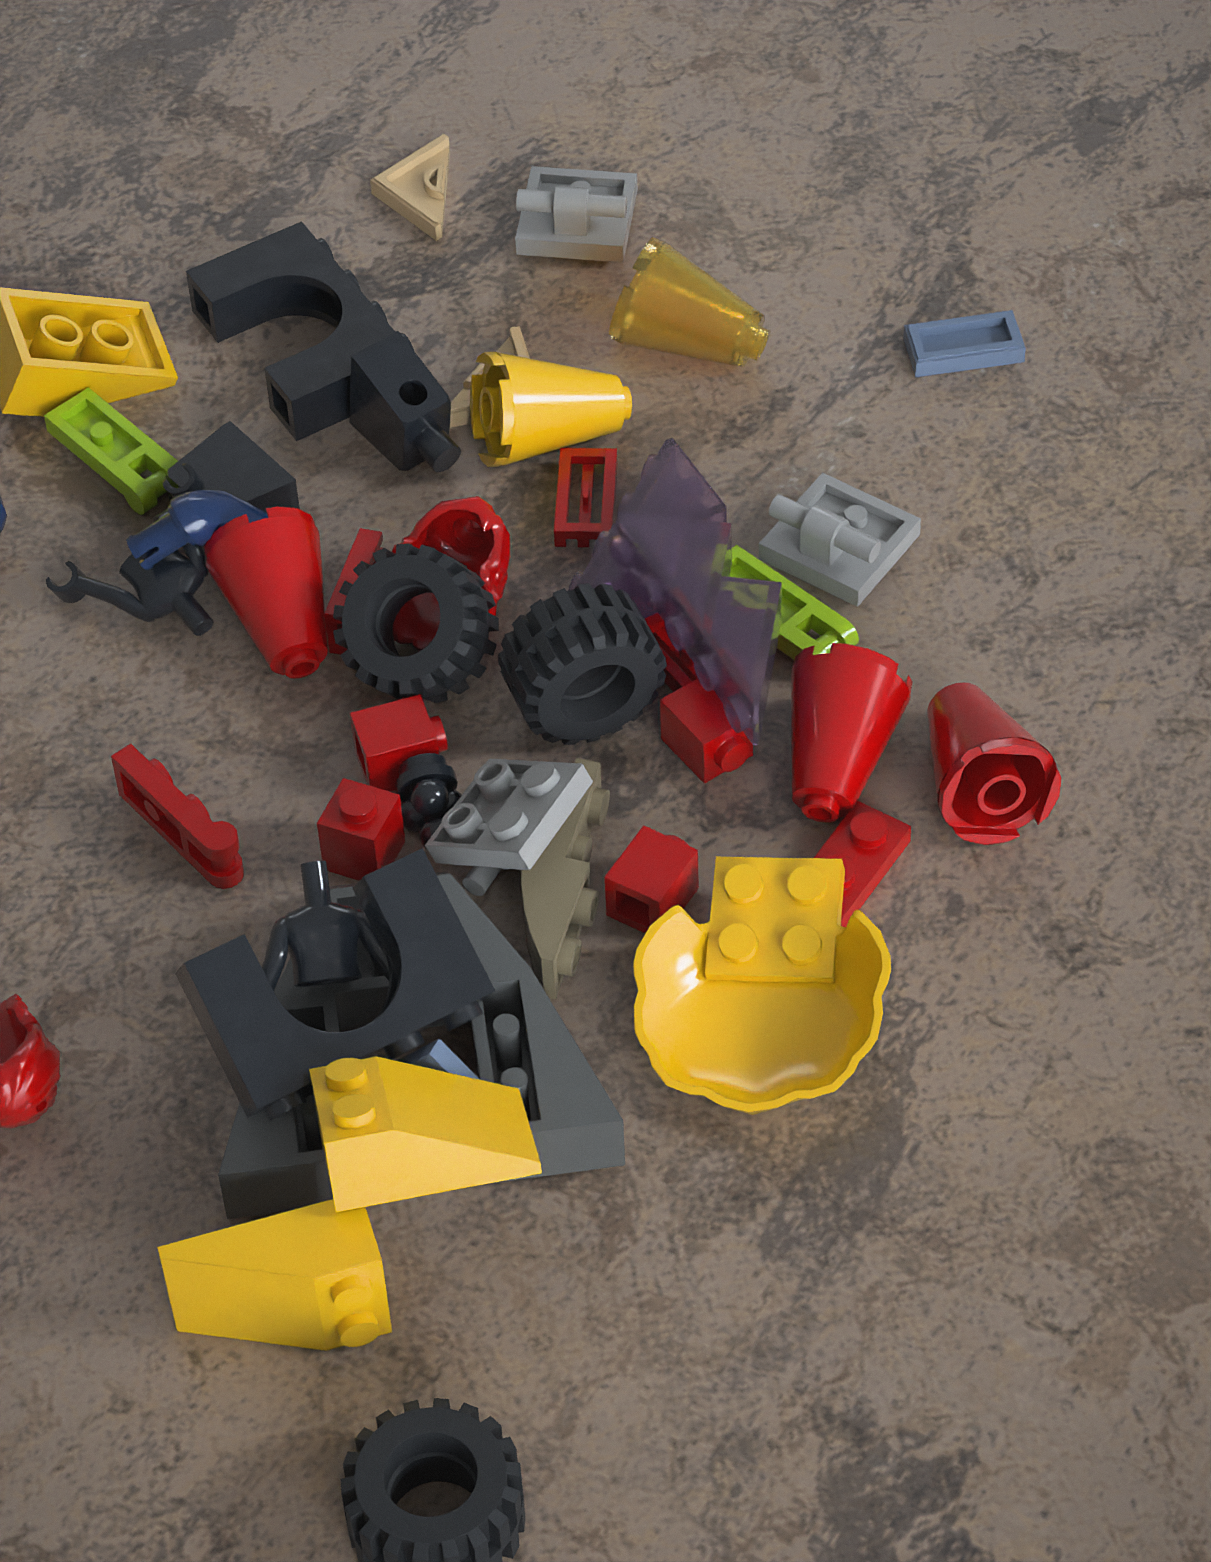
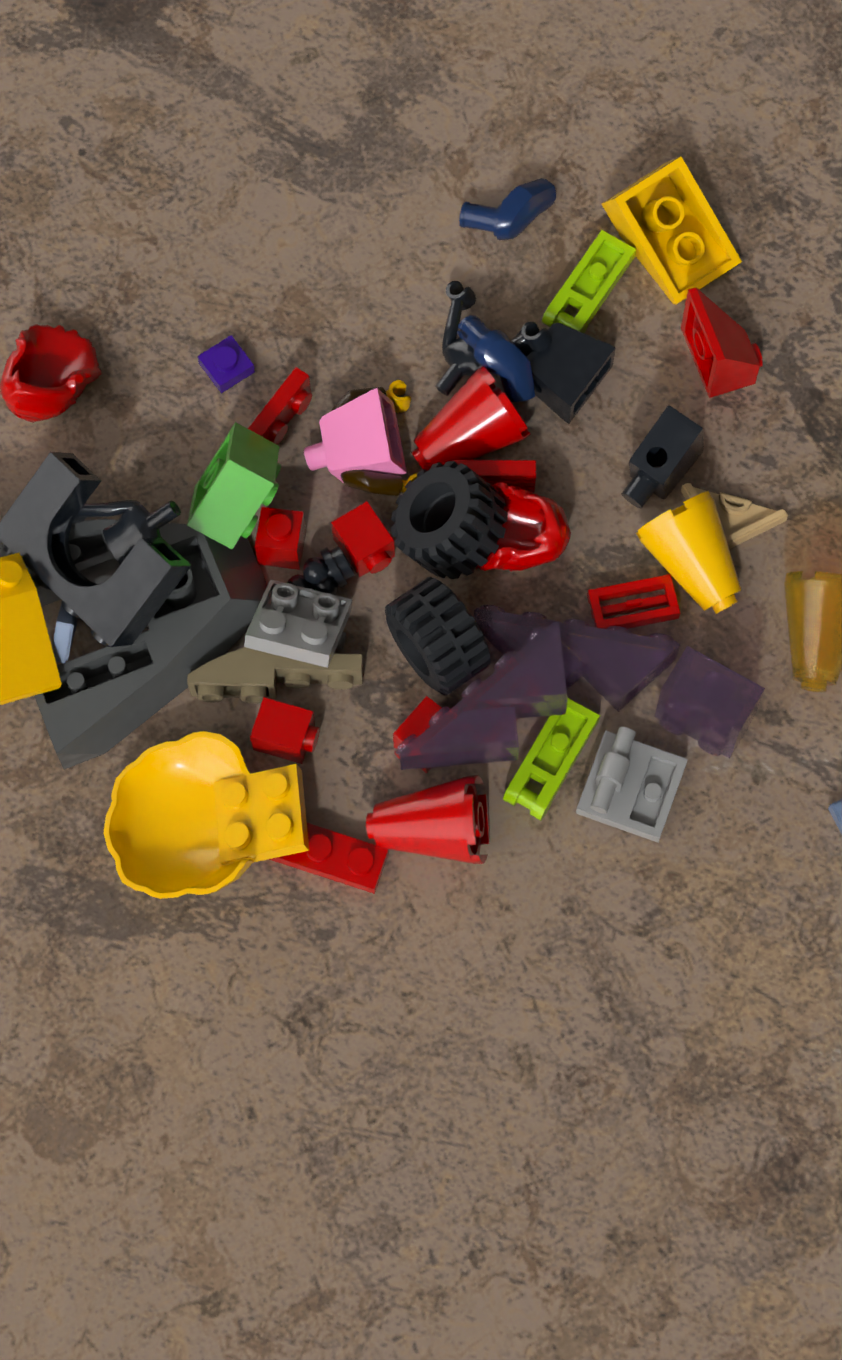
camera: 75 degrees right, 20 degrees up
(53, 864) = (226, 364): none -> dark purple plate
(255, 331) = (718, 346): none -> red slope
(256, 710) = (364, 440): none -> bright pink torso
(269, 827) = (235, 486): none -> bright green brick
(292, 277) = (790, 346): black arch -> none
(760, 424) = (708, 703): none -> clear purple brick
(987, 767) = (433, 923): red cone -> none

